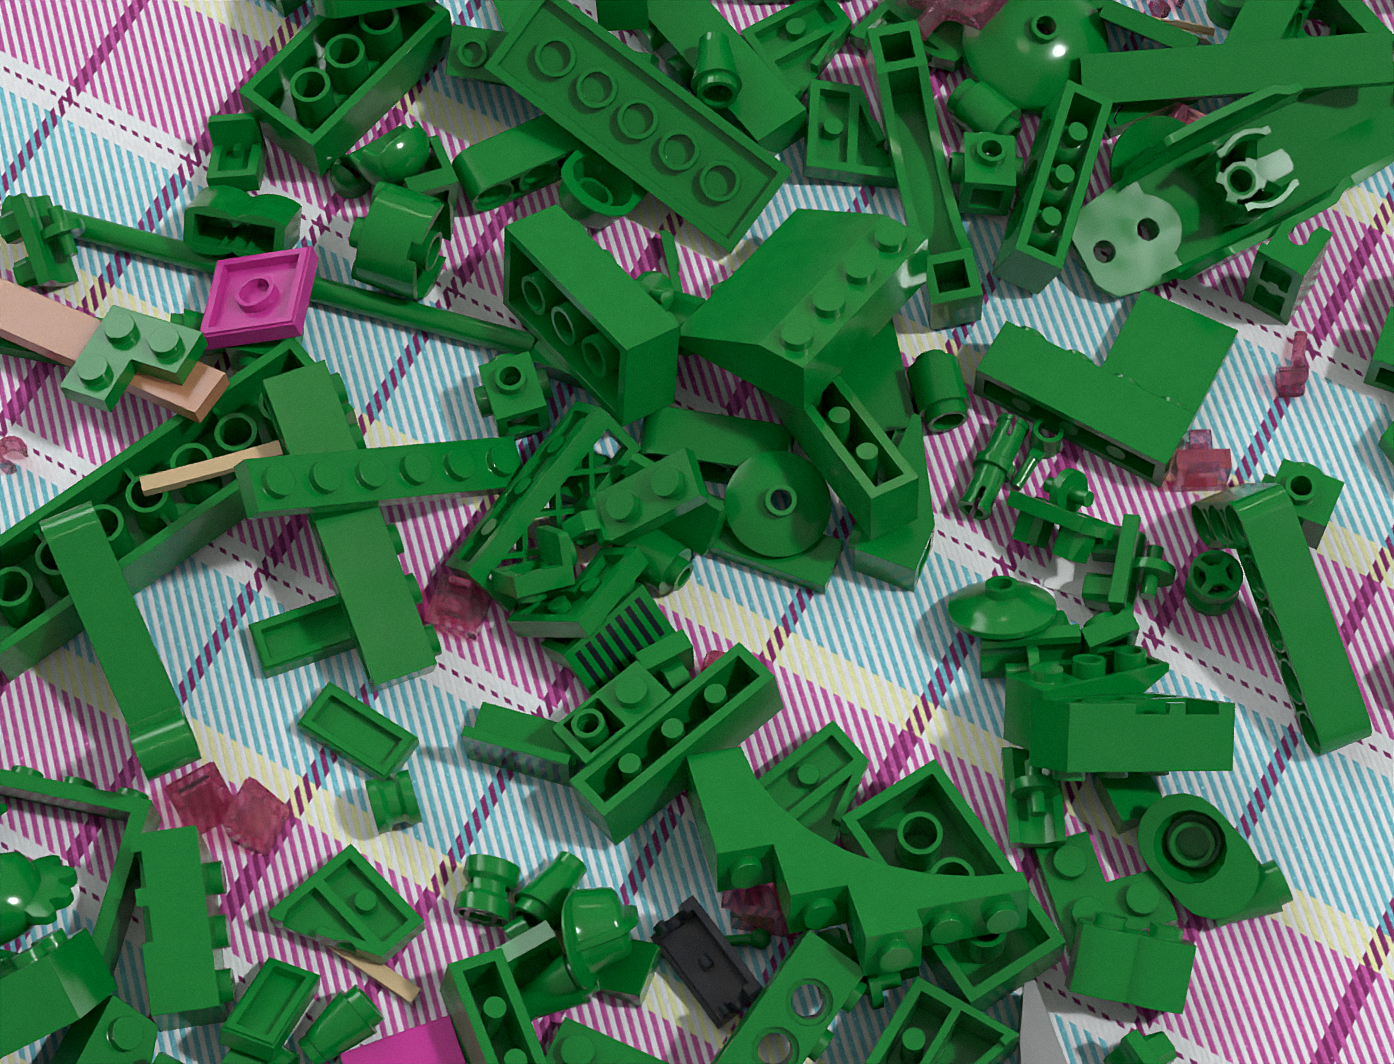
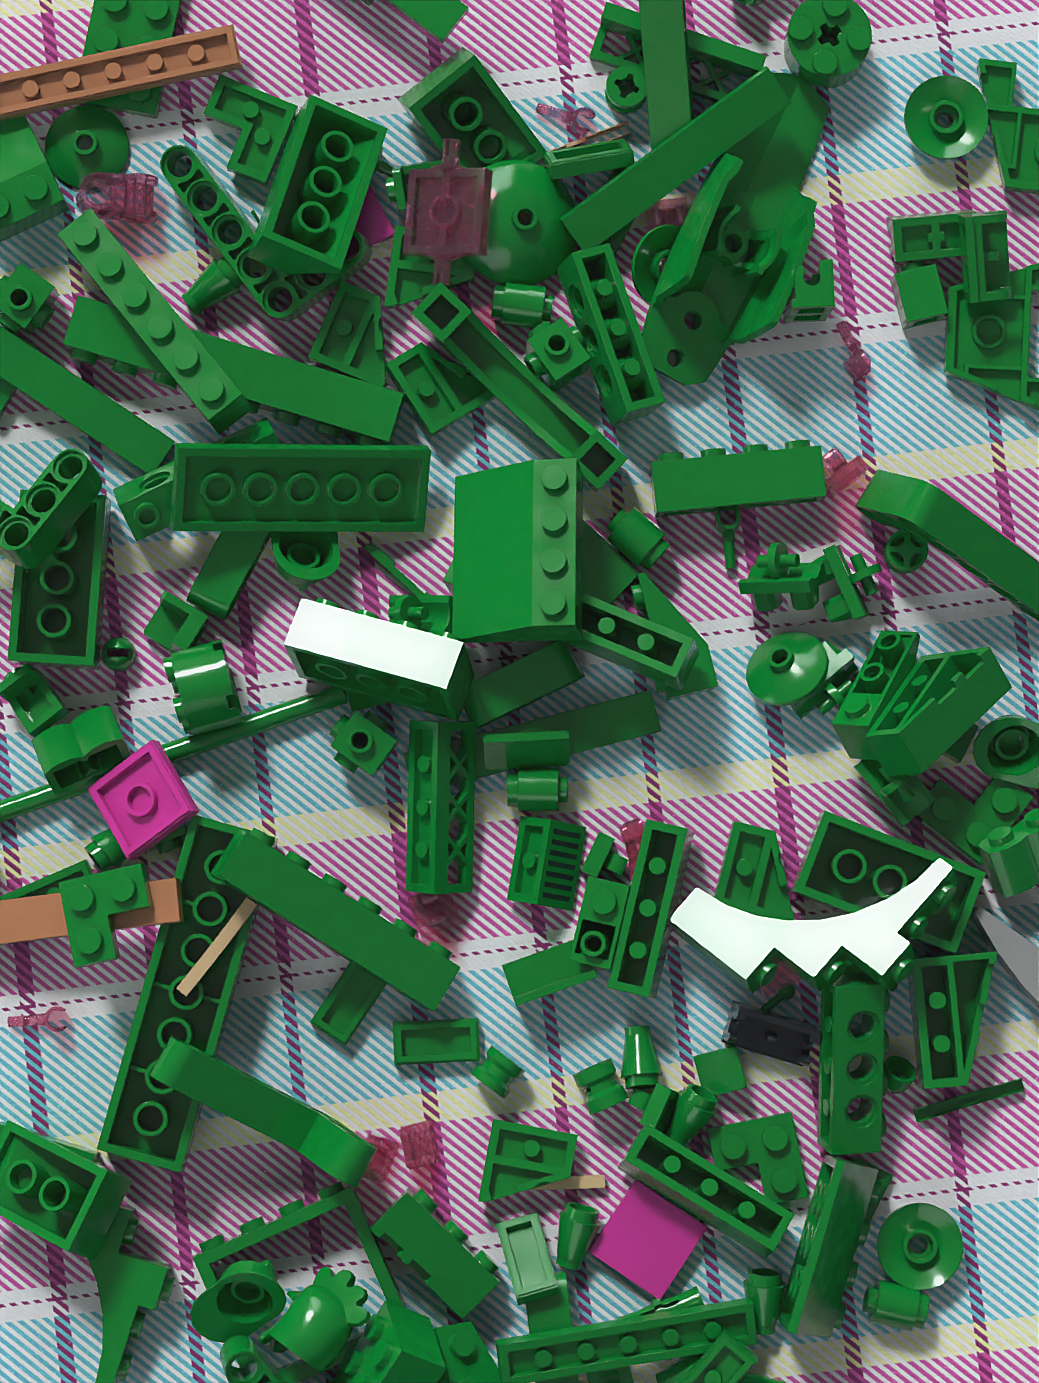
camera: 45 degrees left, 20 degrees up
(376, 476) = (339, 880): green plate -> none
(393, 155) = (145, 627): green hair -> none
(532, 578) = (478, 860): green bracket -> none
(582, 607) = (526, 858): green plate -> none
(596, 931) = (695, 1068): green piece -> none
(640, 502) = (513, 768): green hinge -> none
(715, 72) = (326, 413): green cone -> none
(762, 526) = (574, 696): green dish -> none
(993, 466) = (708, 566): green pin -> none
(1107, 631) = (863, 637): green plate -> none
(1170, 350) = (765, 401): green tile -> none
(1311, 494) = (934, 448): green brick -> none

